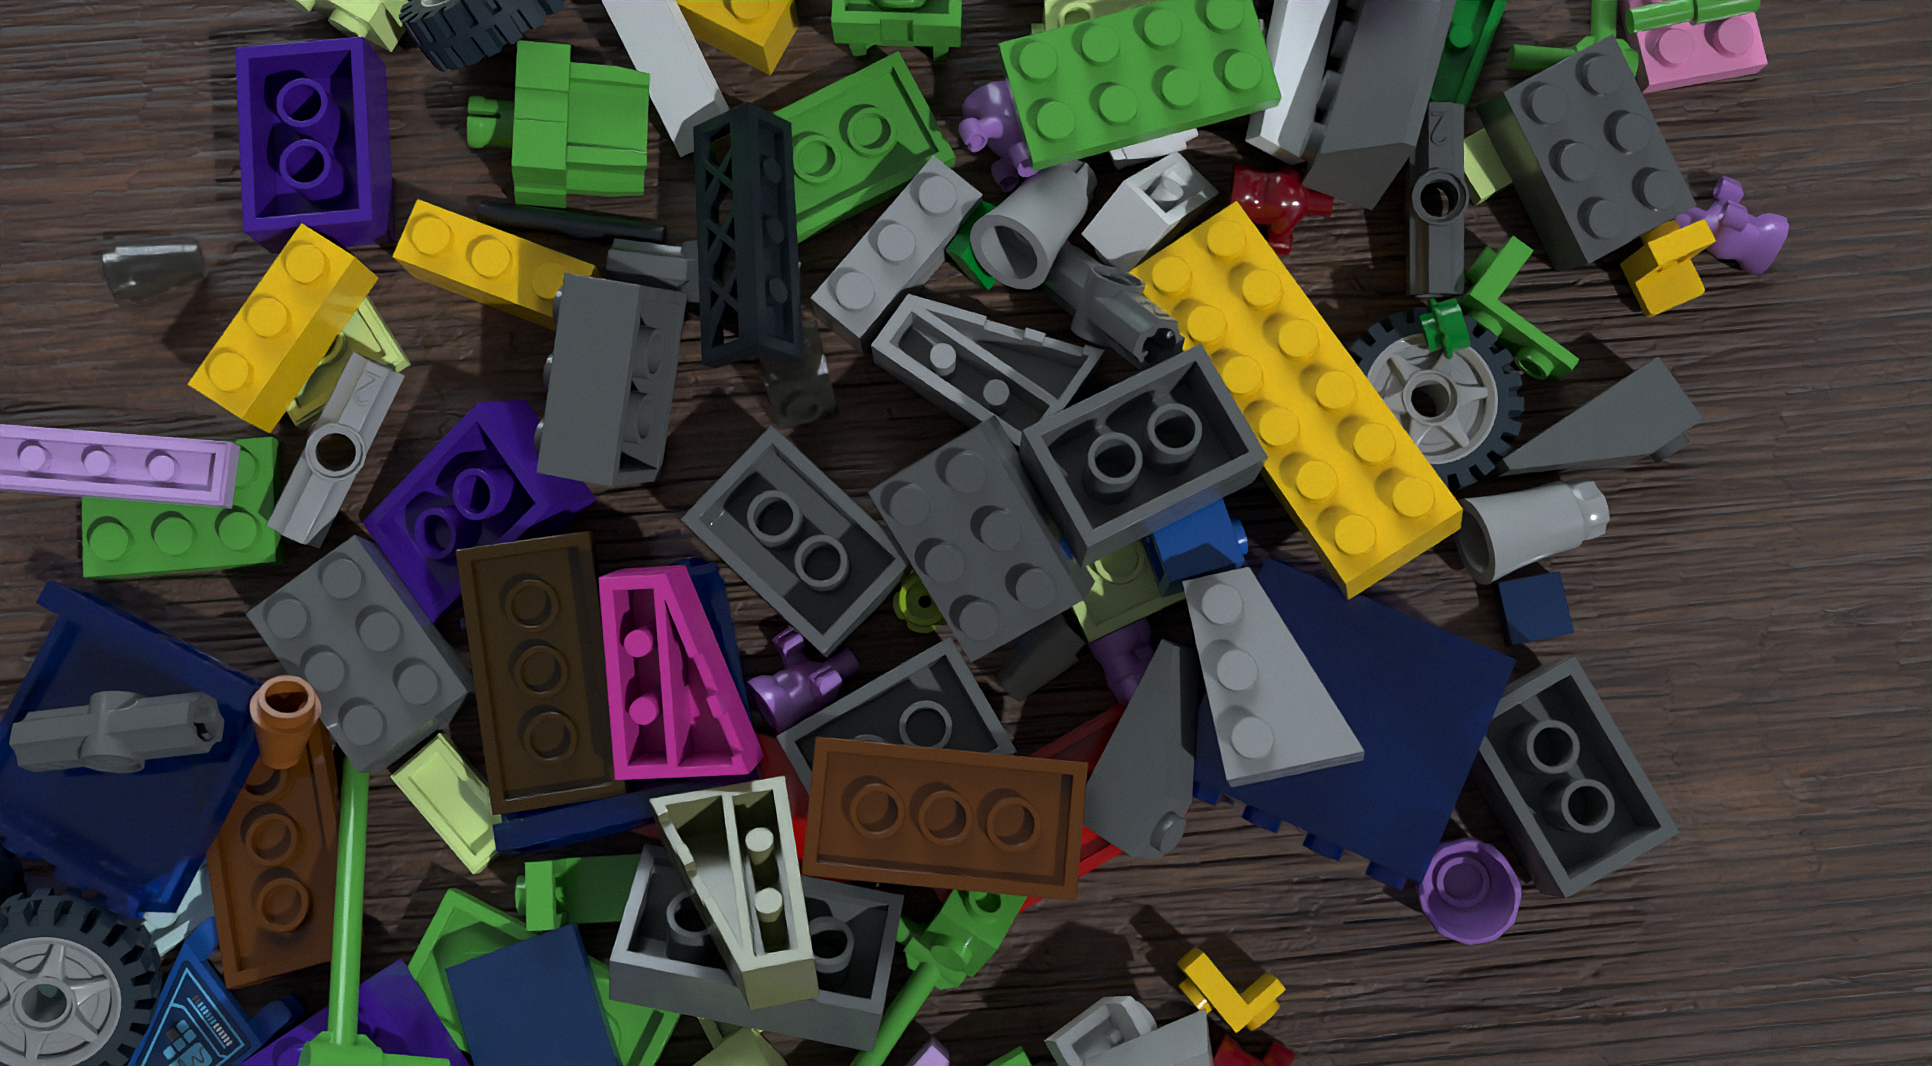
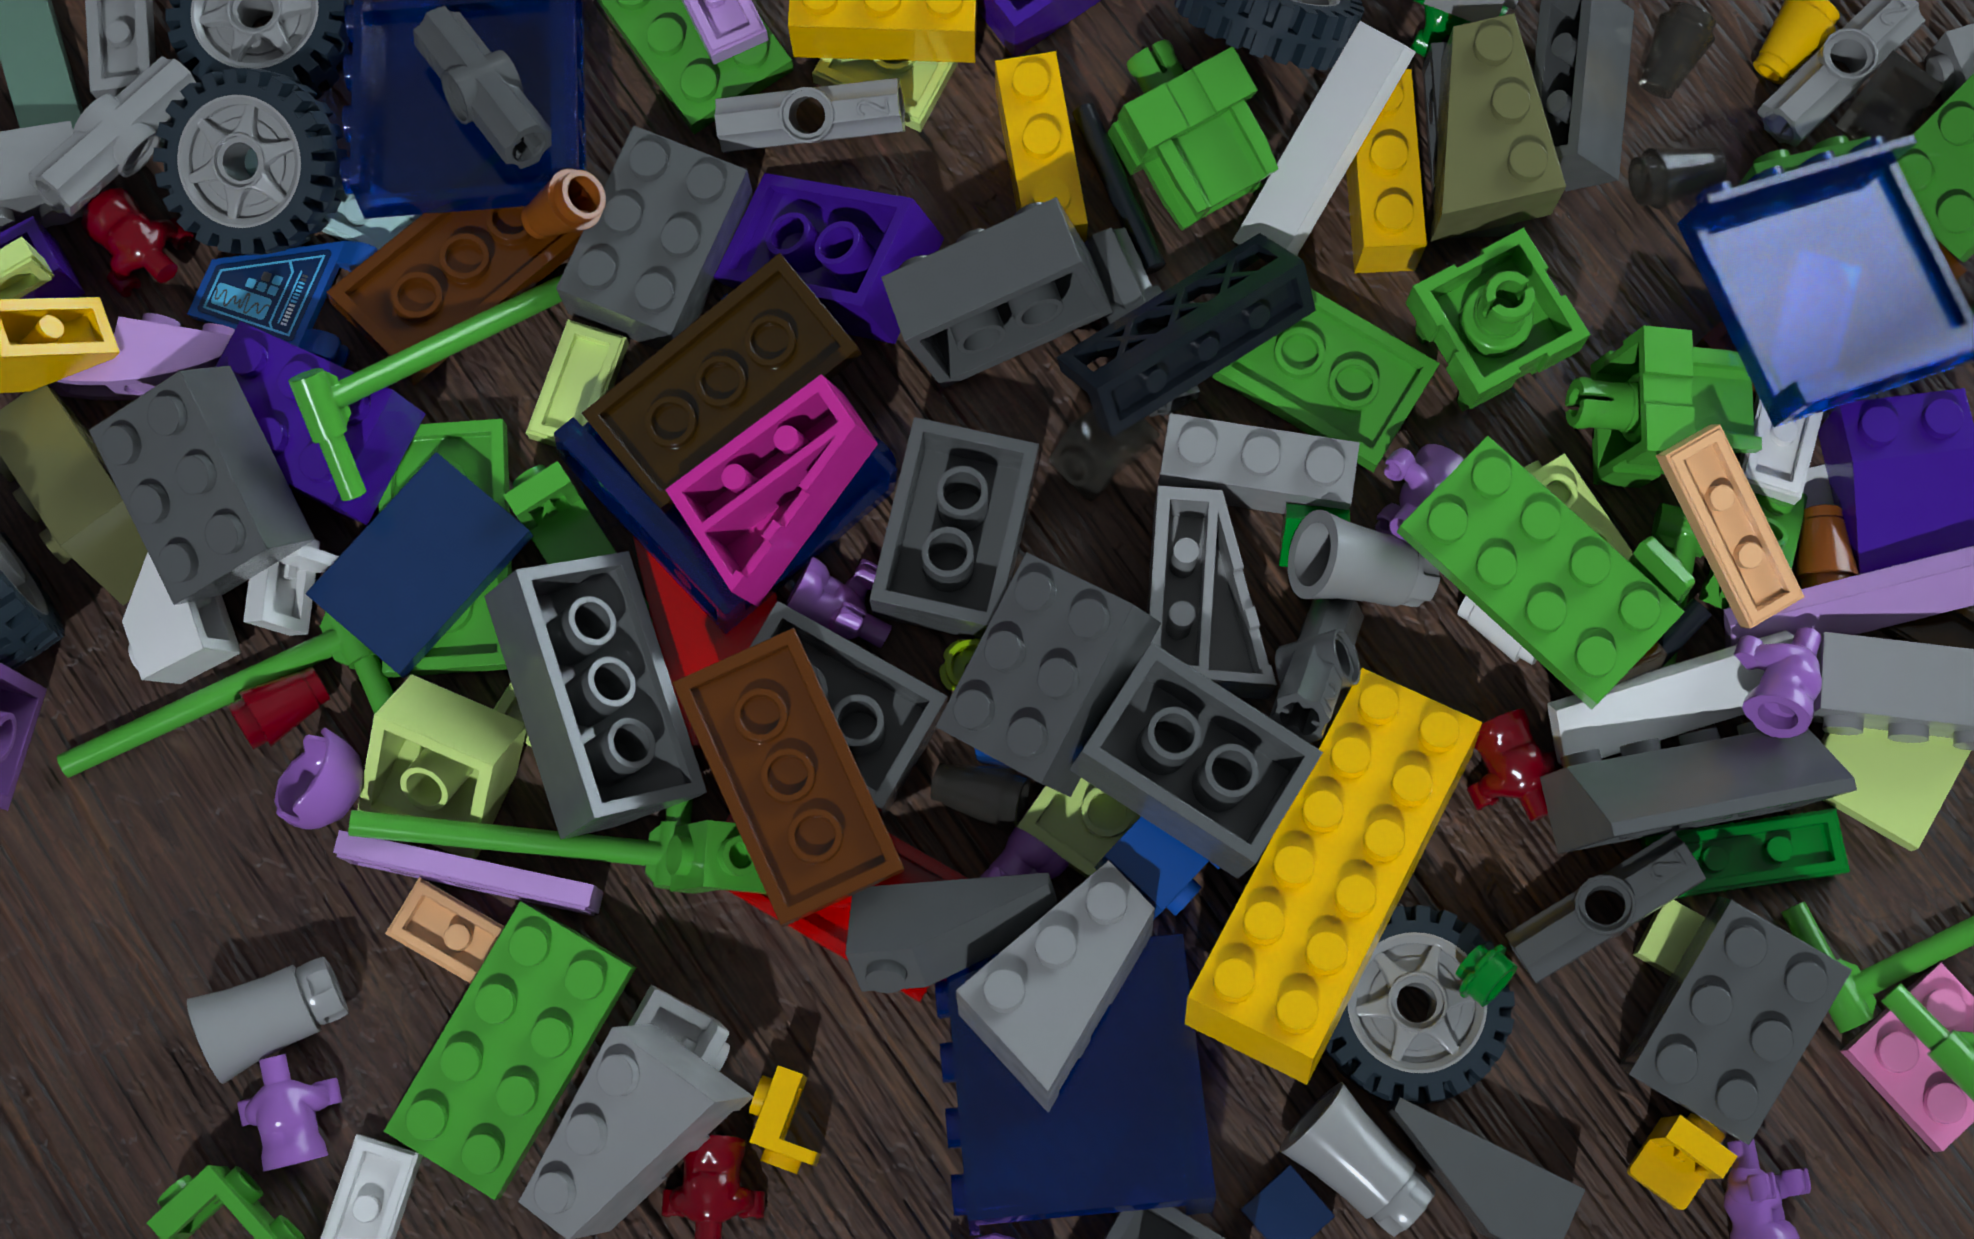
camera: 65 degrees right, 5 degrees down
(746, 883) = (651, 633): olive wedge -> none
(1148, 212) = (1436, 660): white slope -> none
(1533, 349) = (1568, 999): bright green bracket -> none

